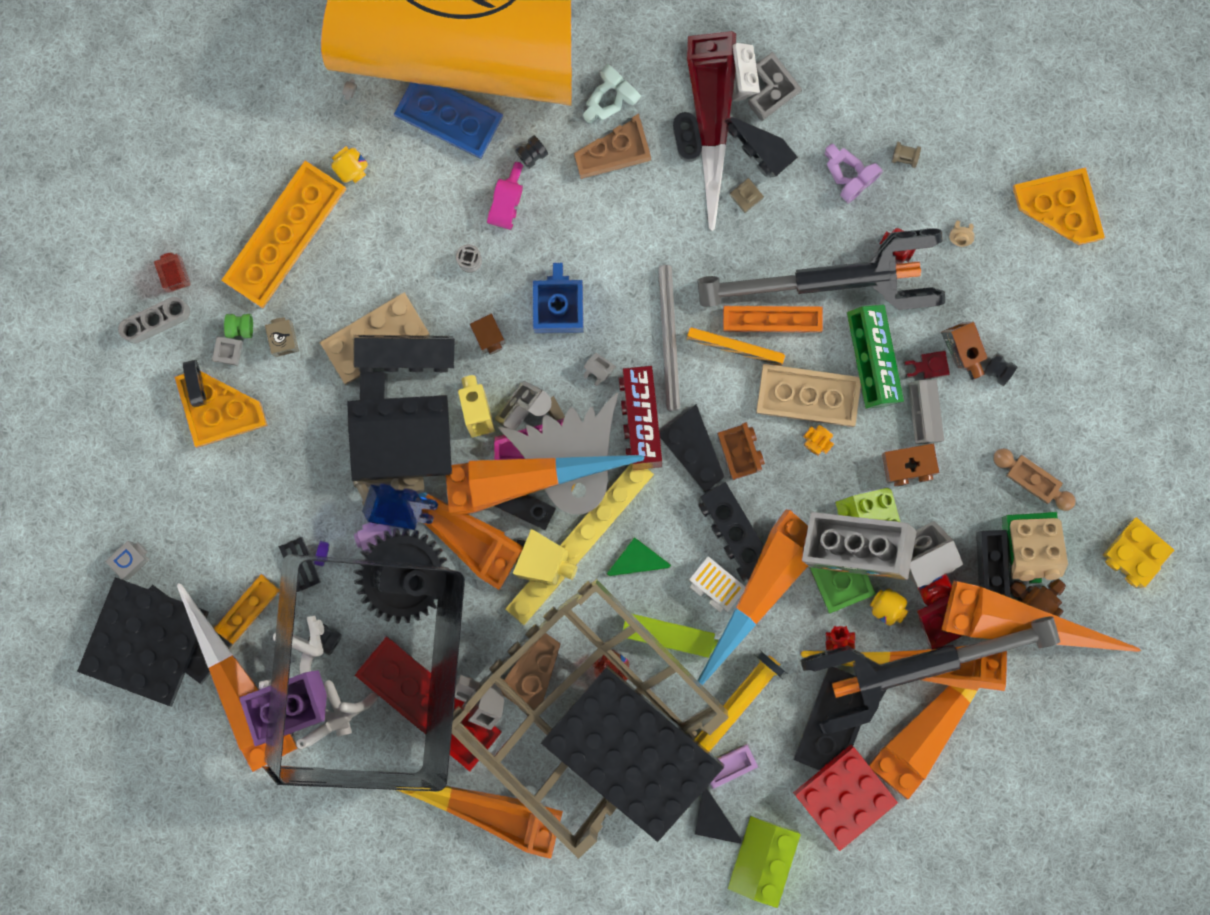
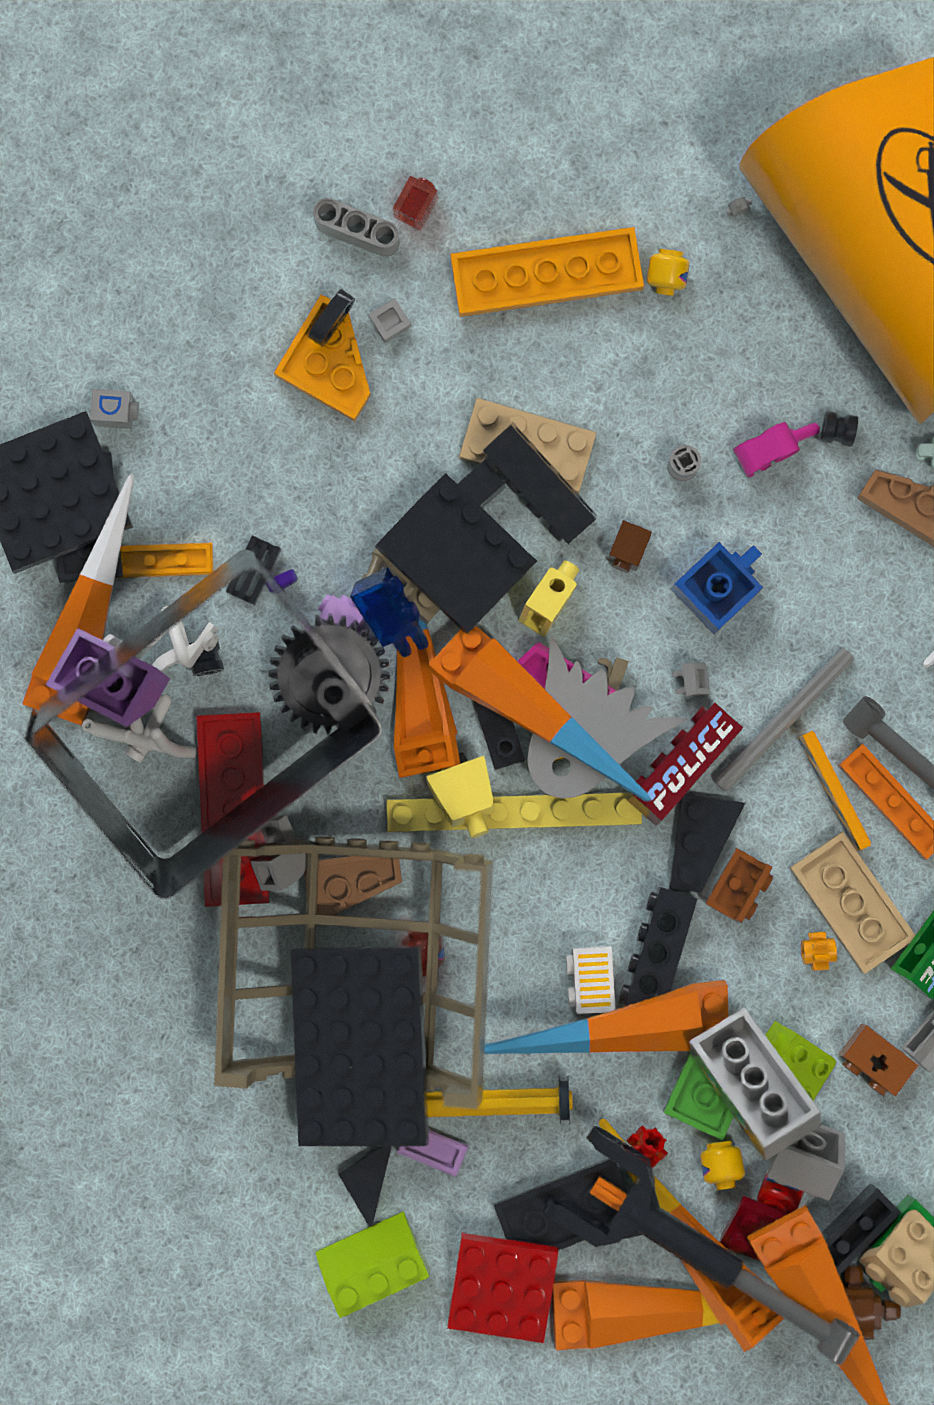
camera: 40 degrees right, 0 degrees up
(238, 326) = (422, 309): bright green wheel -> none
(281, 337) = (449, 358): dark tan brick -> none
(449, 117) = (800, 322): blue plate -> none
(497, 814) = (187, 971): orange plate -> none
(524, 400) = (599, 638): light grey brick -> none
(637, 559) = (547, 881): green tile -> none
(677, 636) = (509, 987): lime brick -> none

